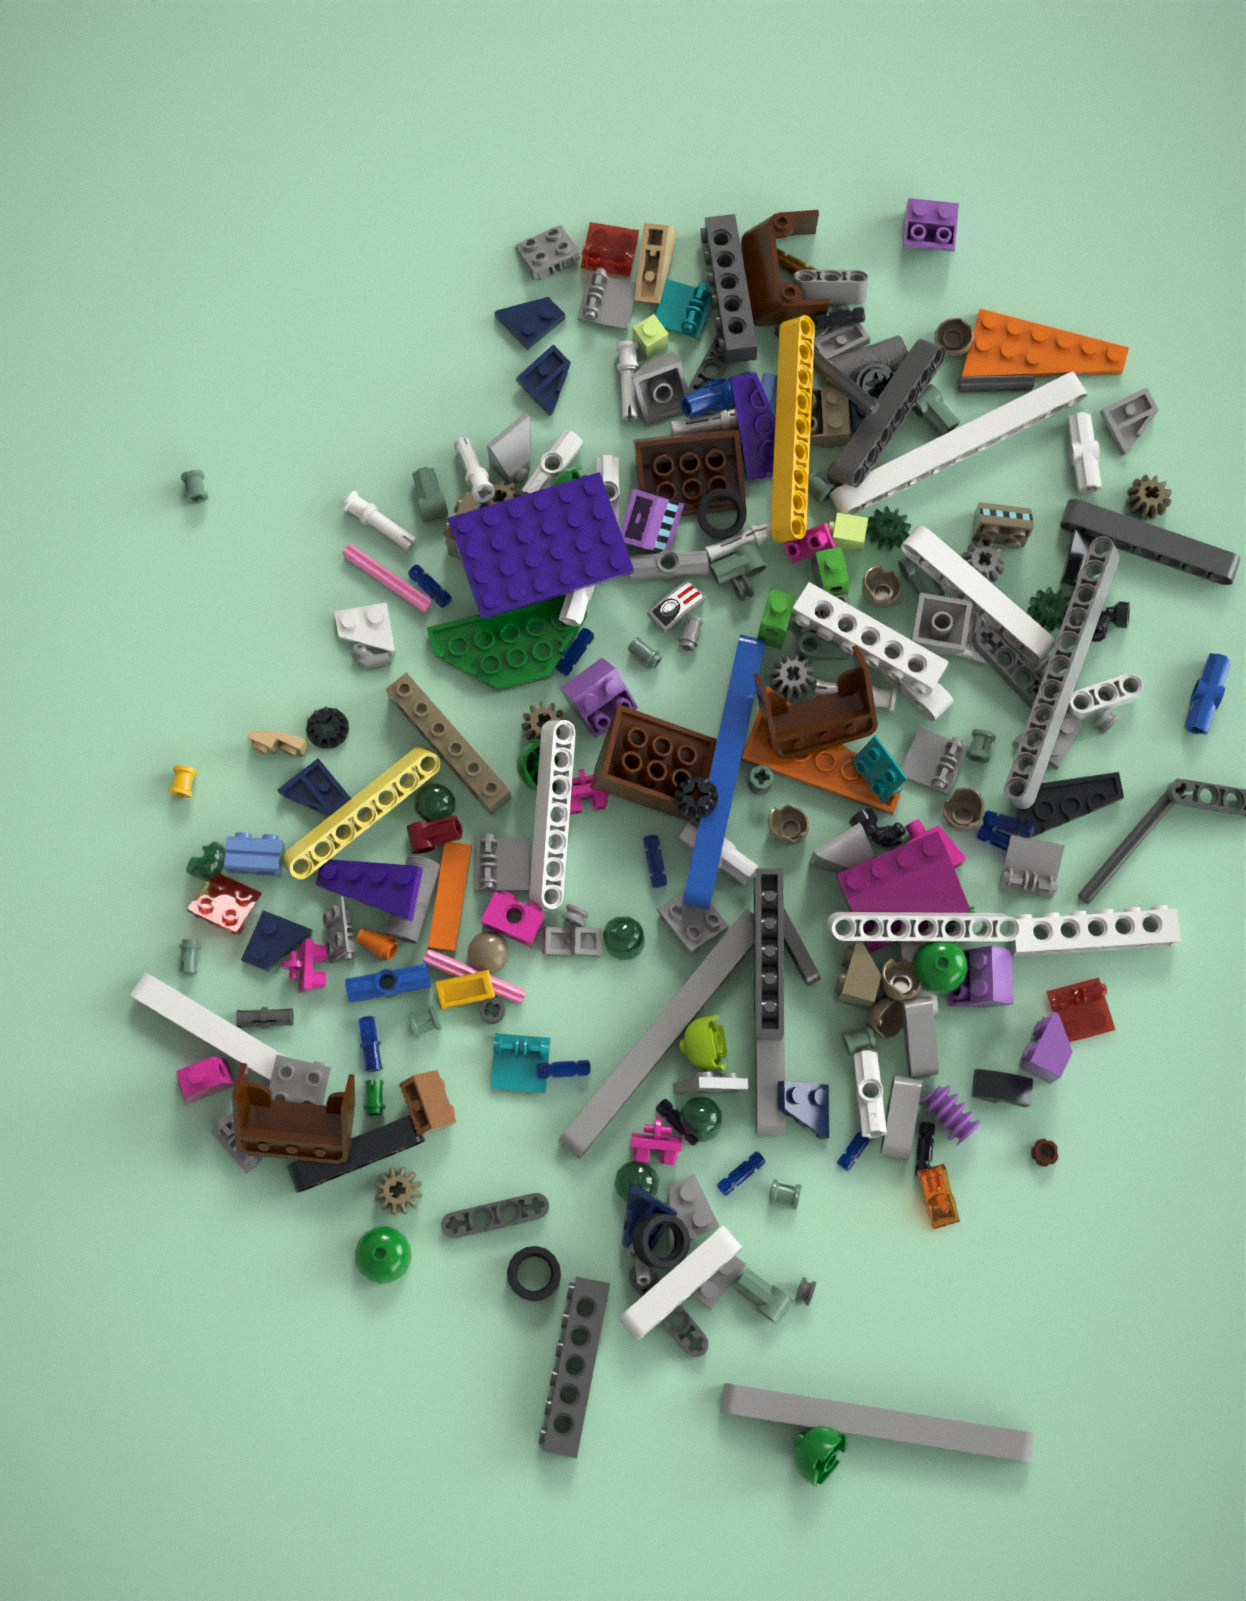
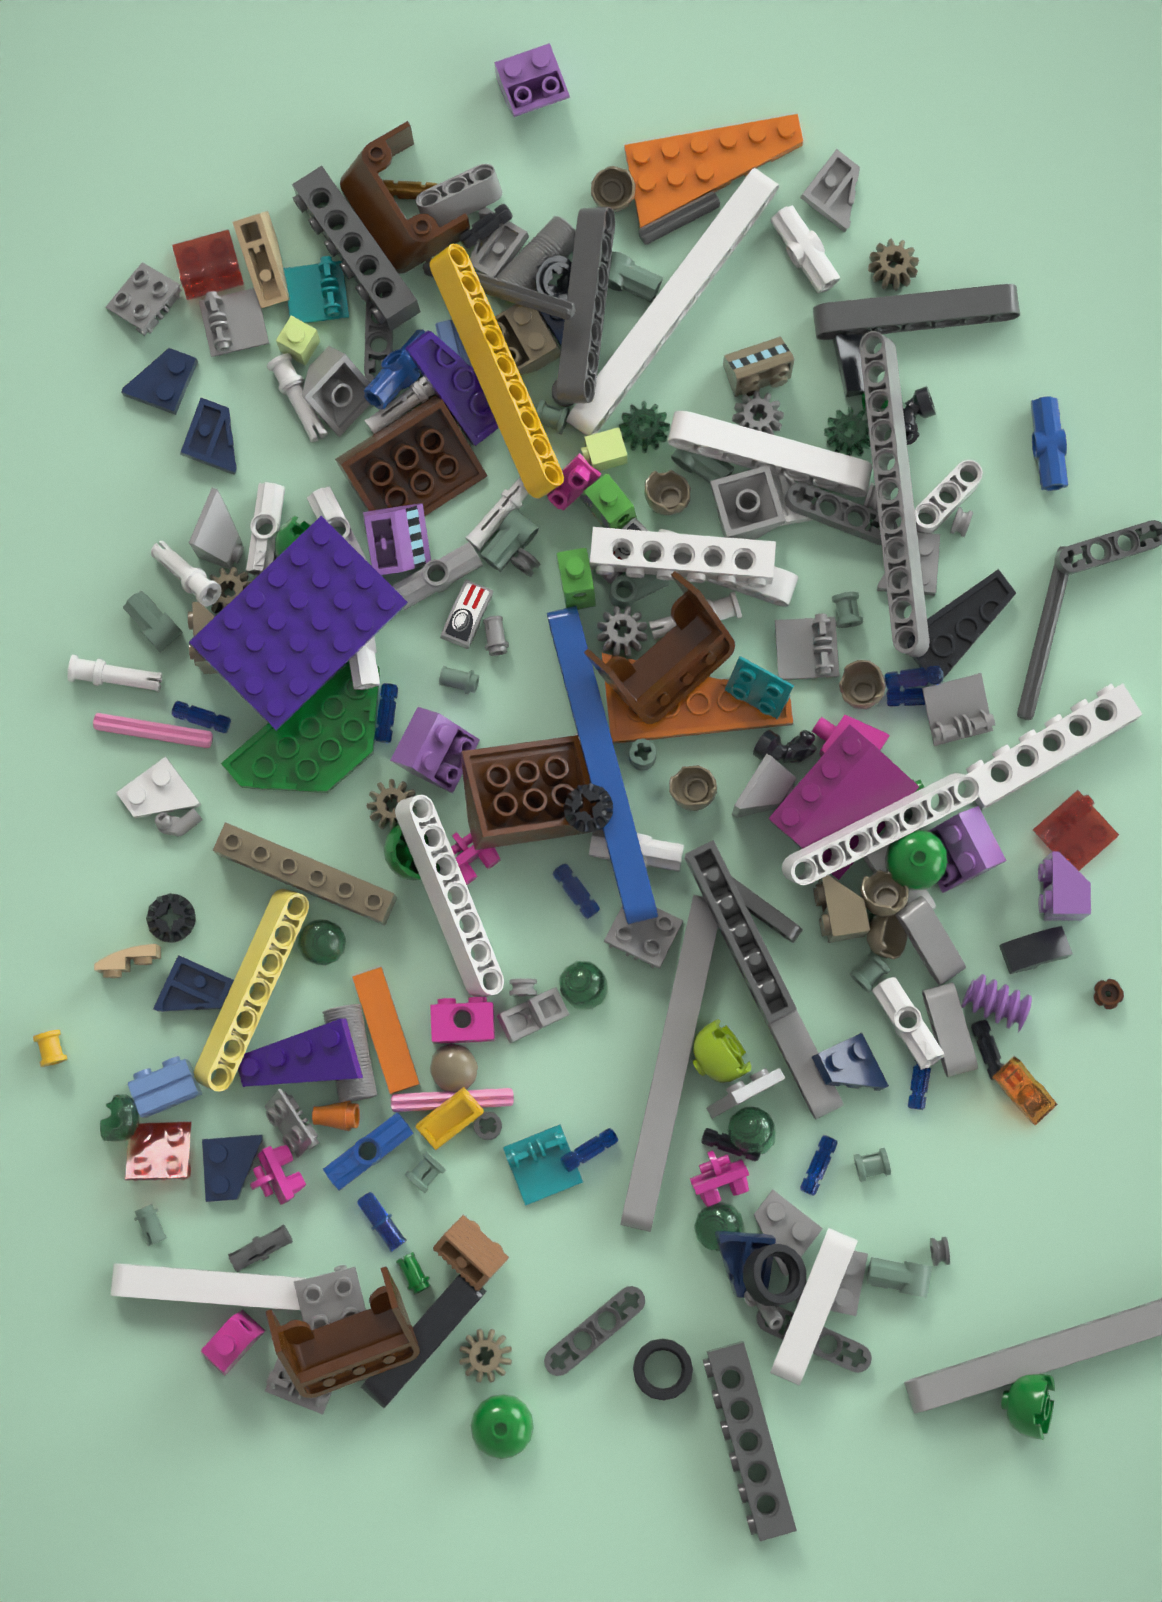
camera: 20 degrees left, 5 degrees up
(426, 835) = (331, 979): dark red piece -> none
(502, 863) = (422, 970): light grey hinge -> none
(741, 513) = (488, 495): black tyre -> none

